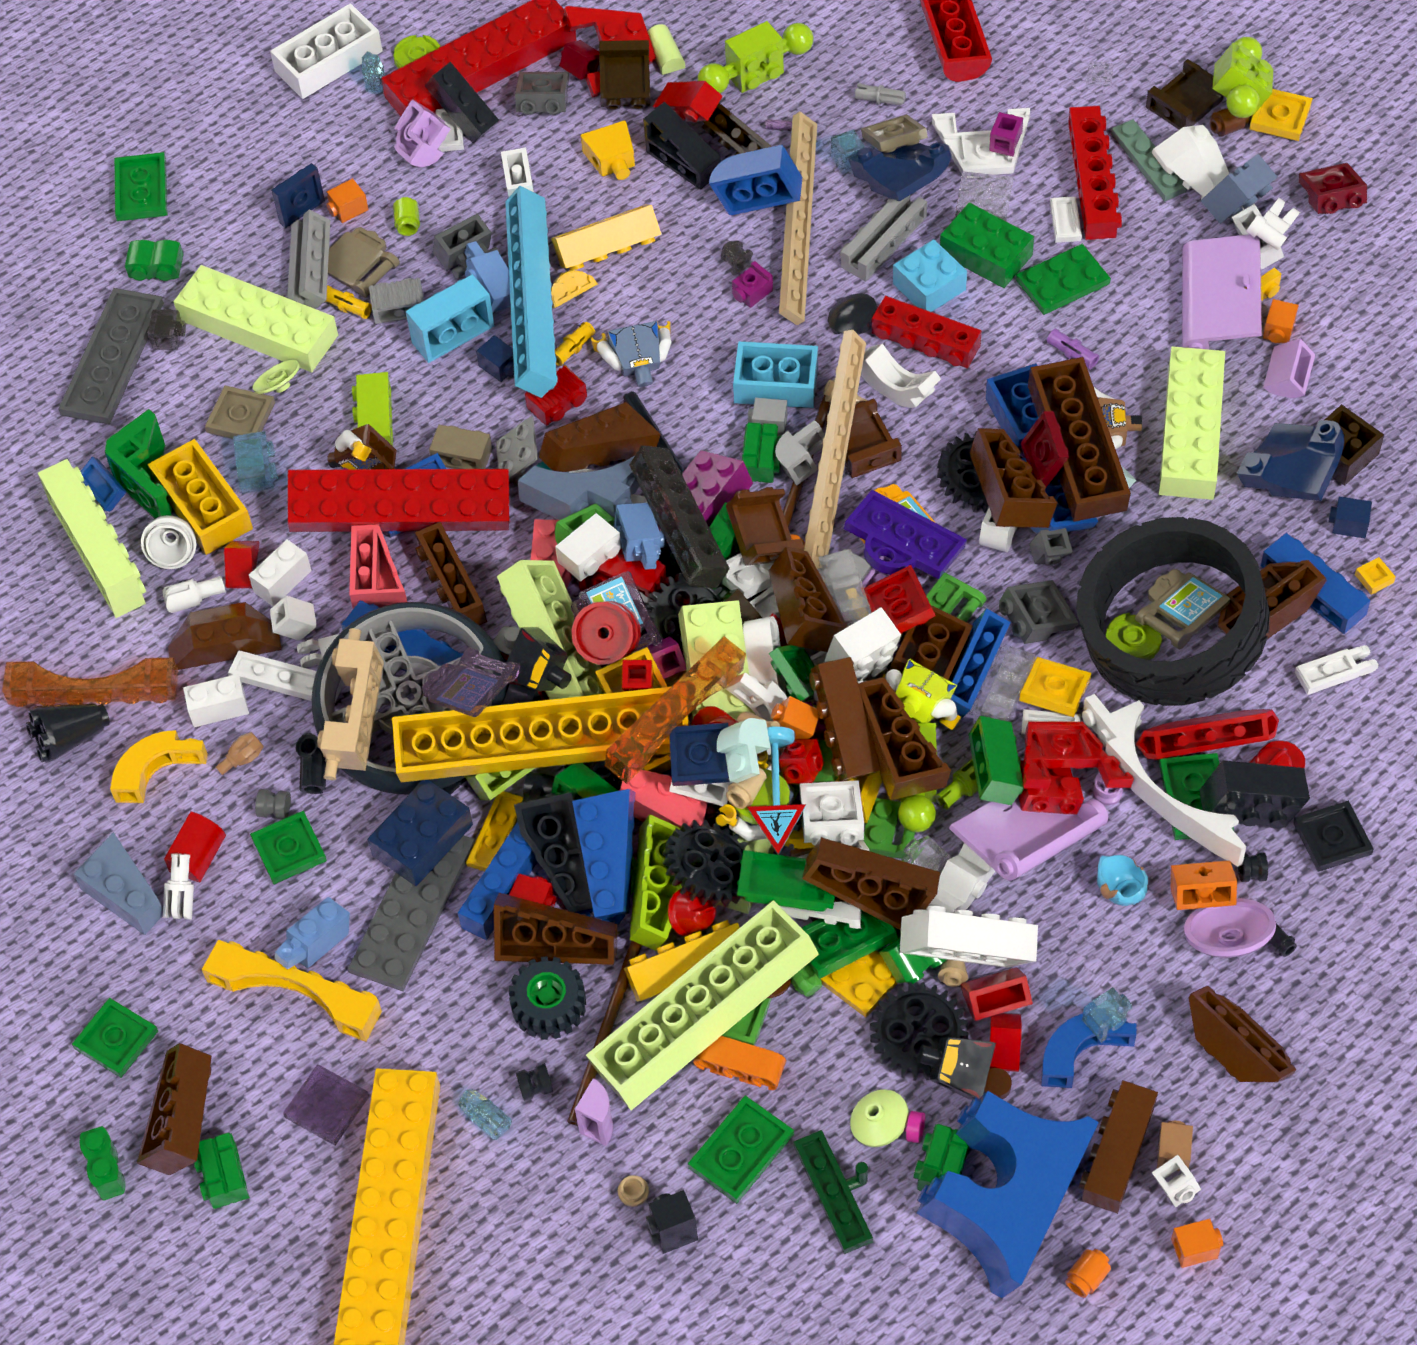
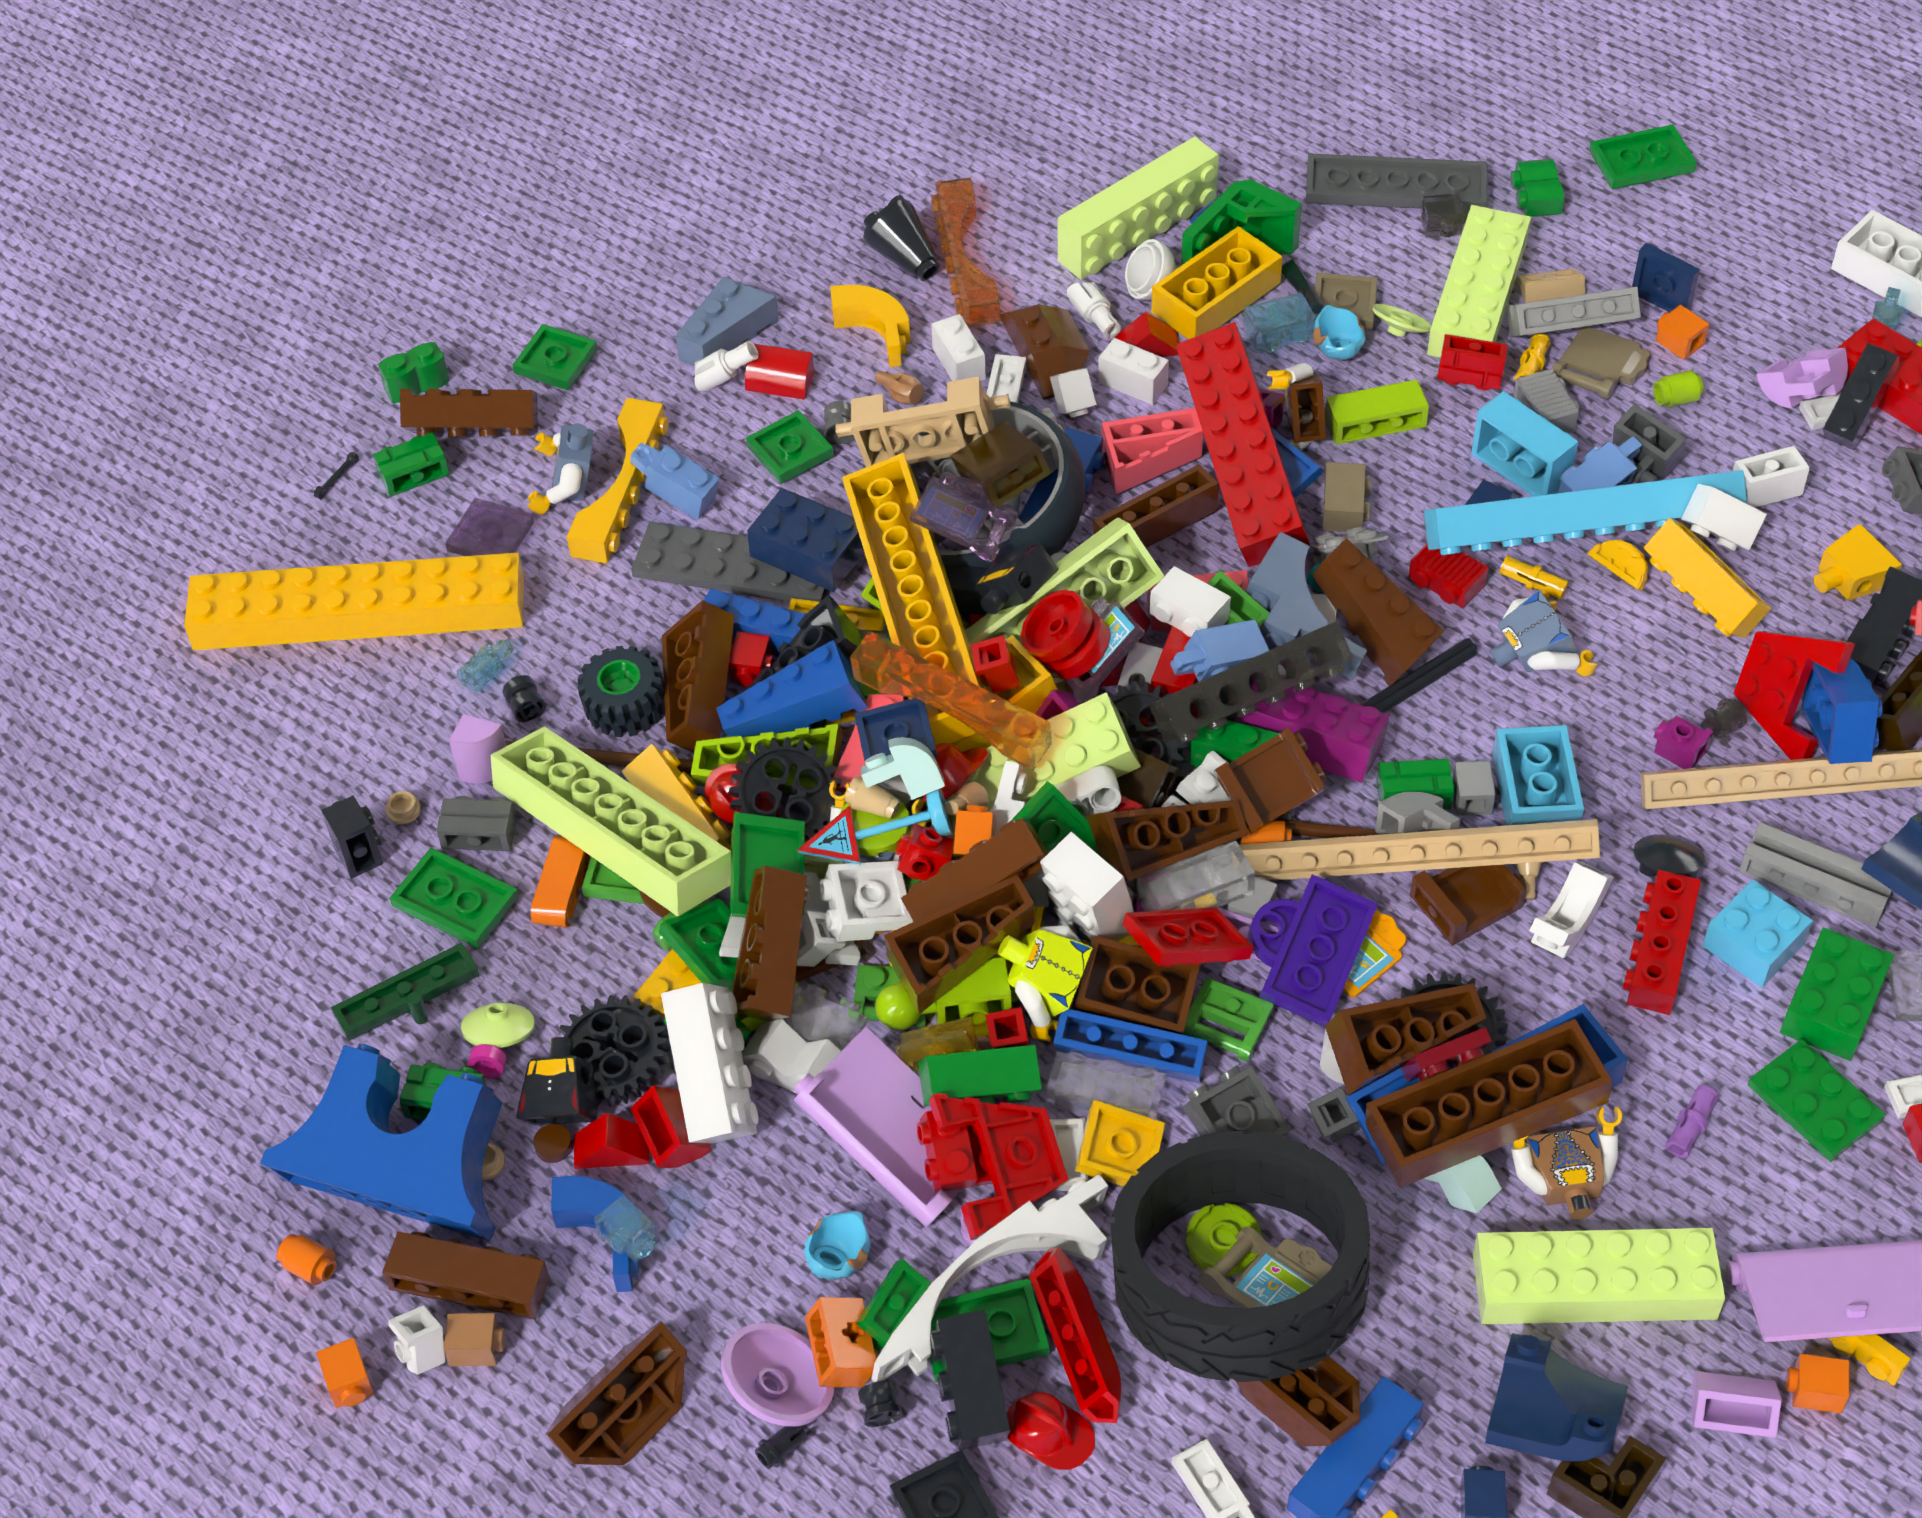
camera: 80 degrees right, 5 degrees down
(190, 1230) = (321, 491): none -> black hinge
(223, 437) = (1300, 284): none -> black piece
(264, 270) = (1551, 285): none -> tan slope
(265, 1023) = (570, 468): none -> torso
(283, 421) = (1338, 333): none -> medium azure hair
(344, 337) = (1472, 362): none -> red brick
(421, 646) = (1001, 463): none -> dark brown panel
(557, 211) = (1723, 517): none -> white brick
(667, 1125) = (477, 824): none -> dark grey brick
(717, 211) = (1775, 681): none -> red wing
(953, 743) = (1007, 1029): none -> red brick
(959, 791) = (936, 1040): none -> clear yellow panel
(1178, 844) = (892, 1302): none -> green panel

